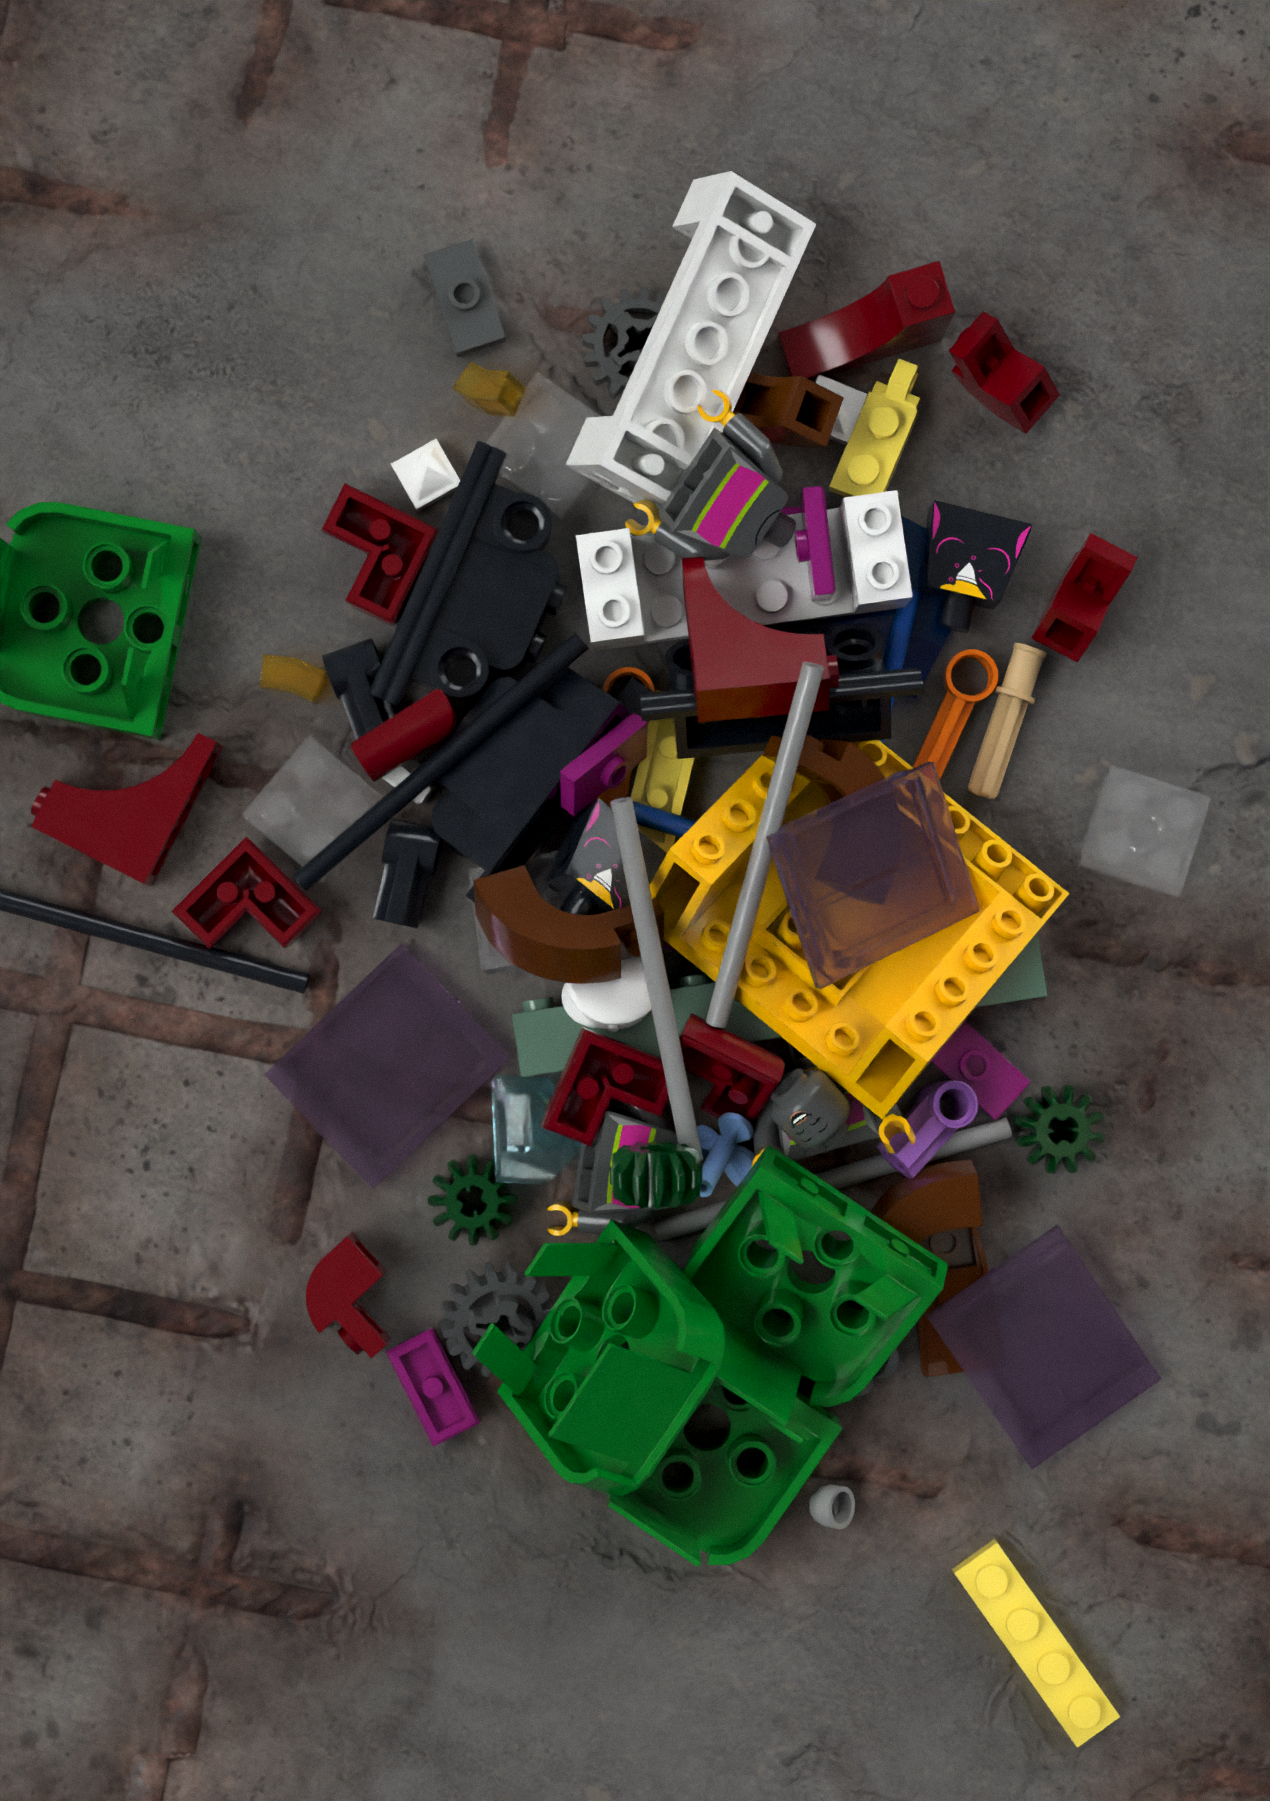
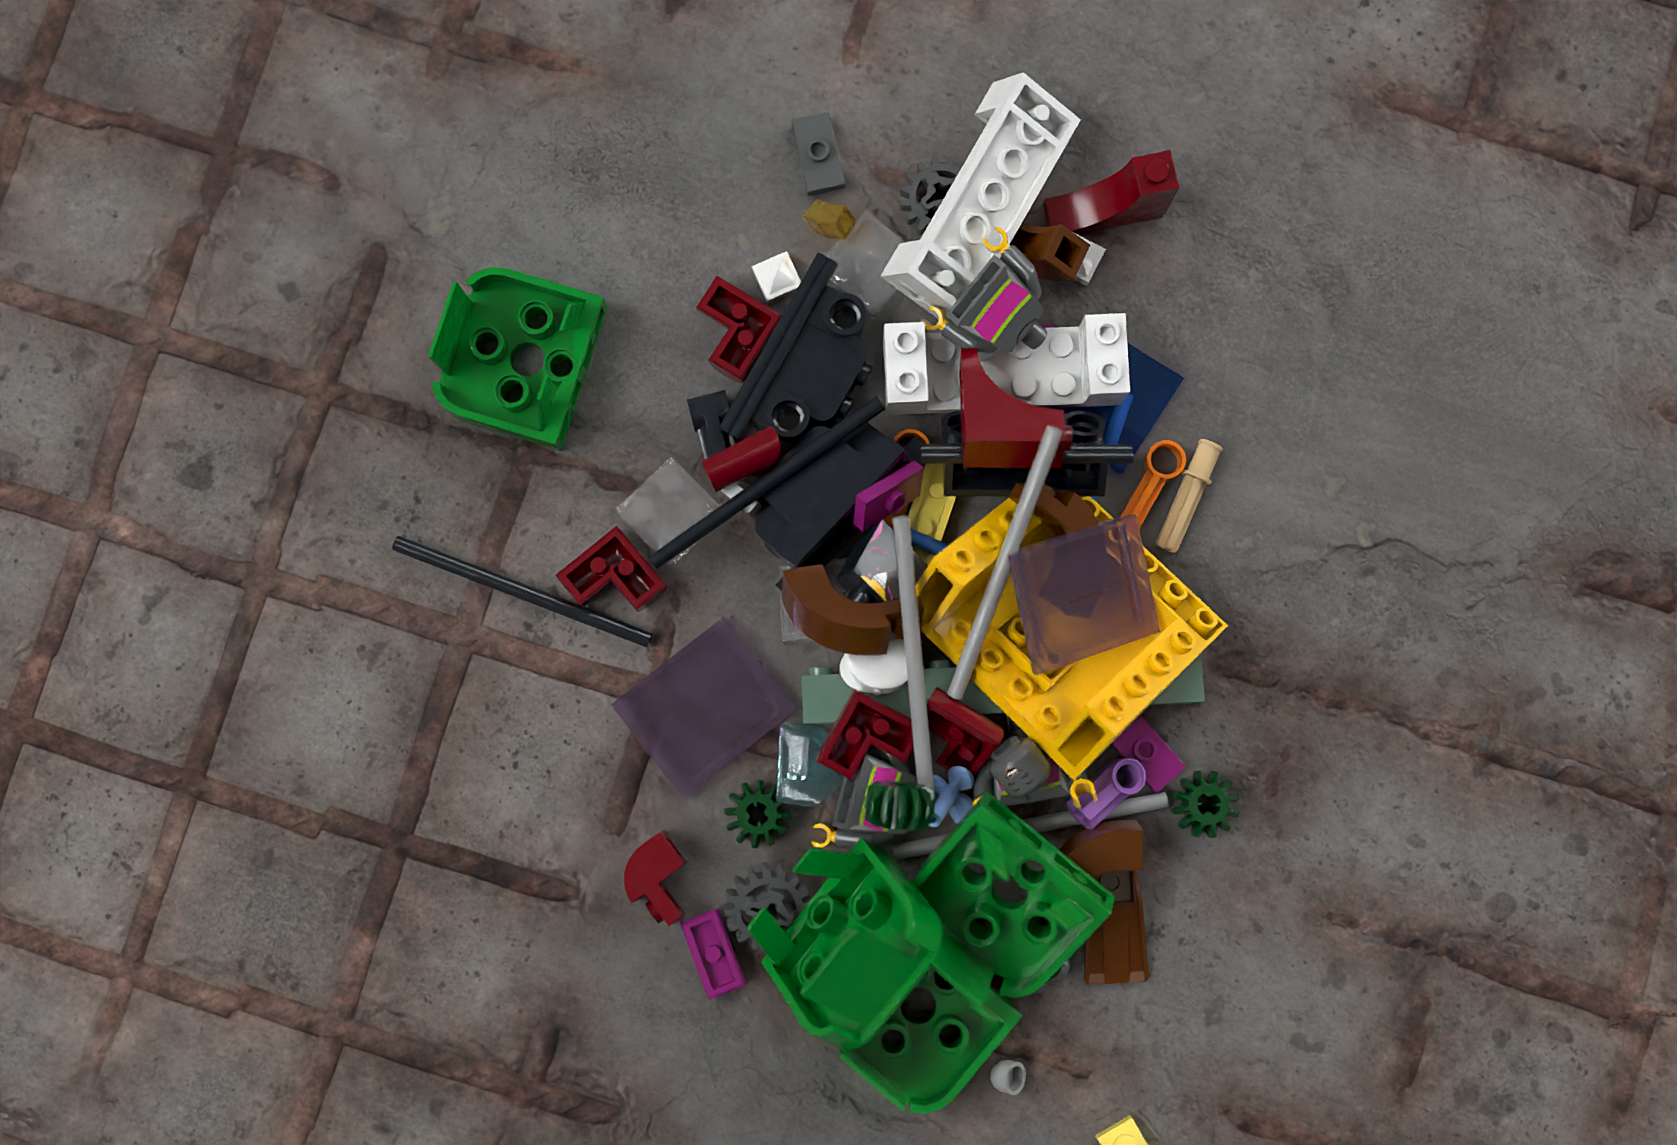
camera: 10 degrees right, 5 degrees down
(131, 825) = (532, 509): dark red arch -> none
(292, 677) = (663, 413): clear yellow piece -> none
(409, 860) = (735, 556): black piece -> none
(814, 543) = (1059, 348): magenta plate -> none
(879, 435) = (1112, 277): light yellow hinge -> none
(969, 560) = (1171, 374): black torso -> none
(1000, 375) = (1204, 244): dark red brick -> none
(1044, 1347) = (1180, 969): clear purple piece -> none
(1083, 597) = (1254, 409): dark red brick -> none
(1144, 831) = (1285, 587): clear plate -> none

